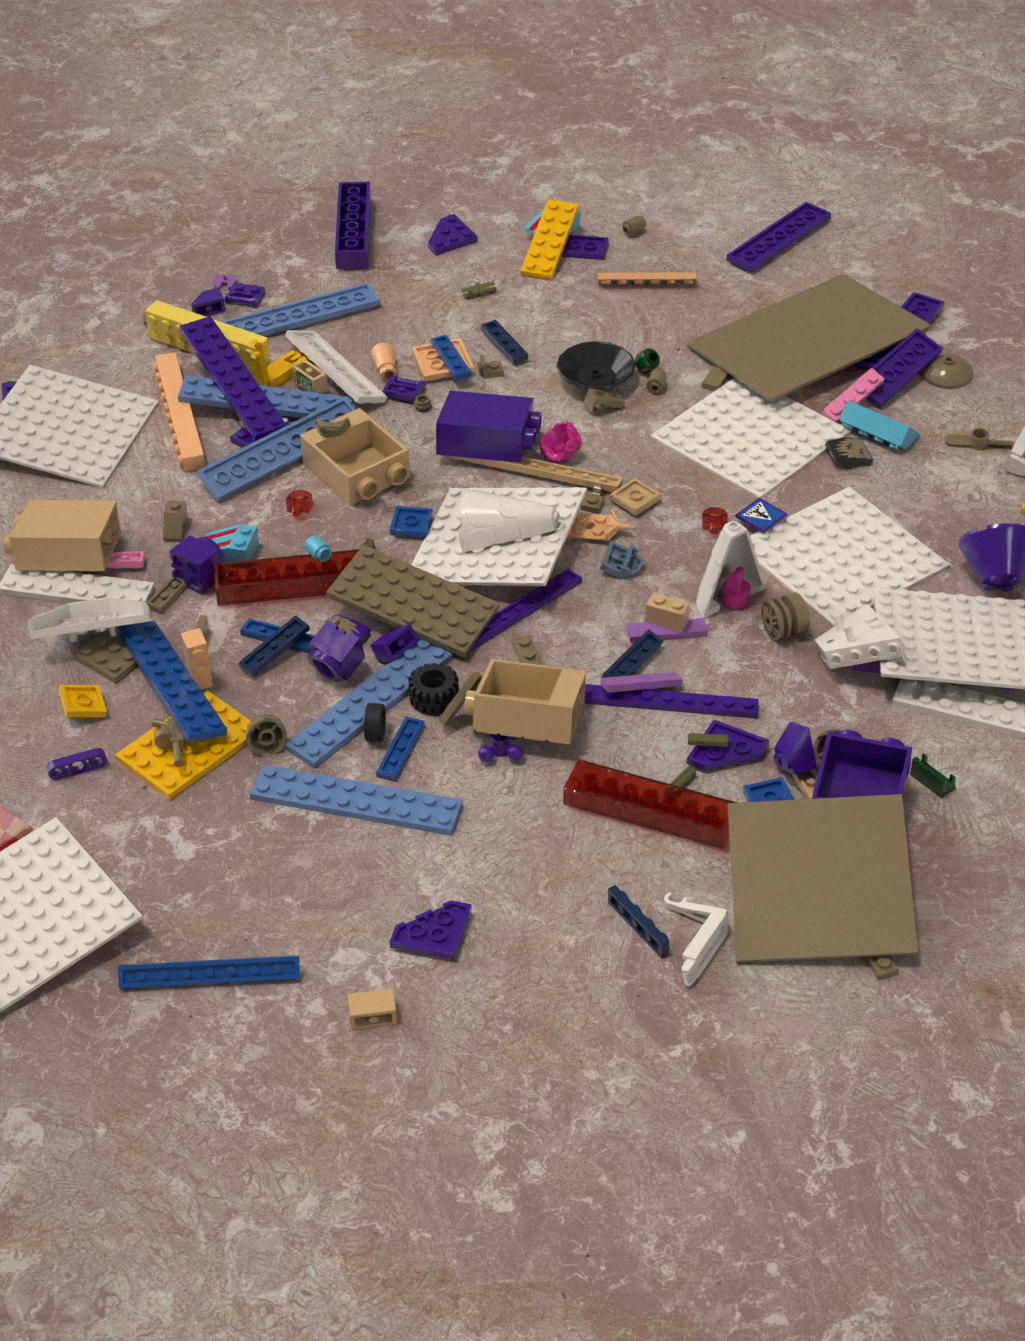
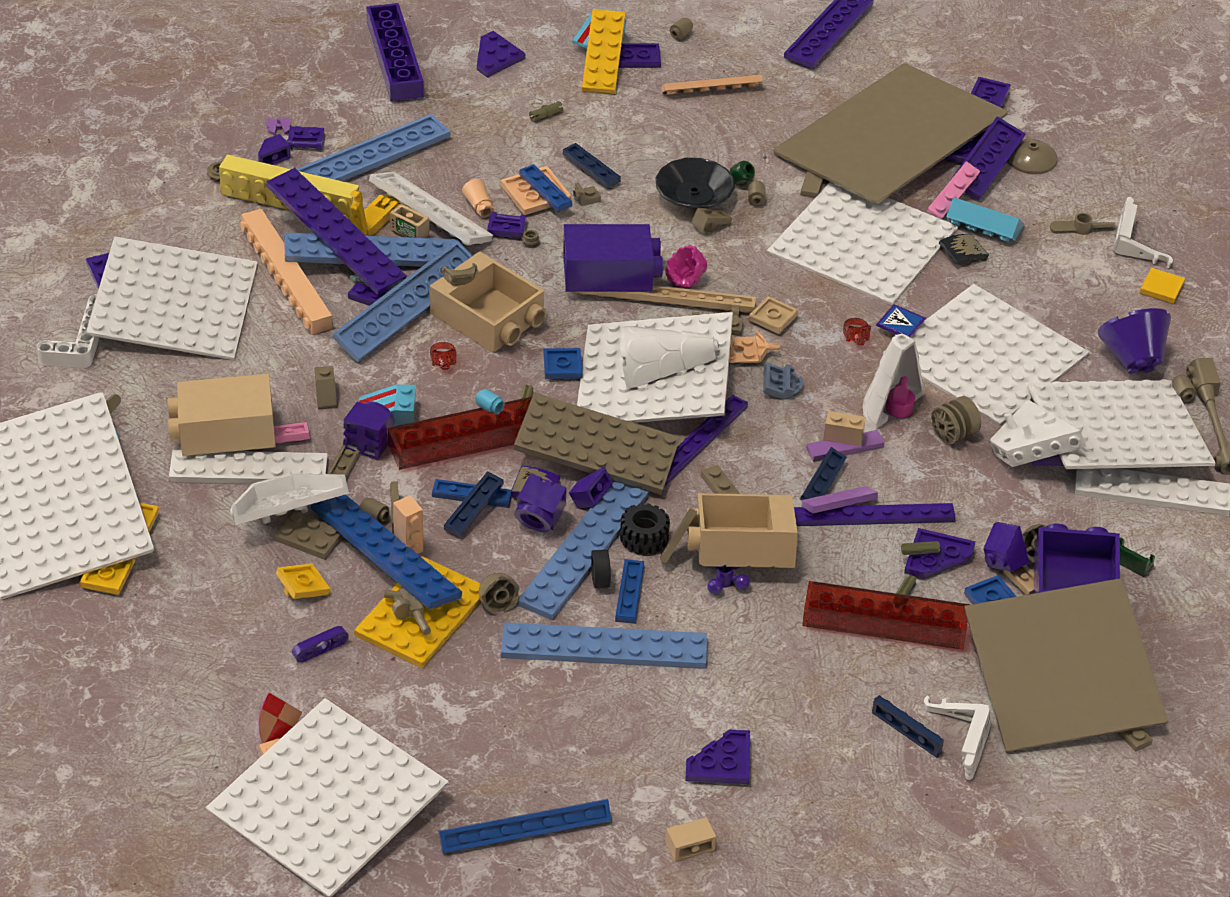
camera: 15 degrees left, 0 degrees up
(173, 637) = (375, 509): none -> dark tan brick

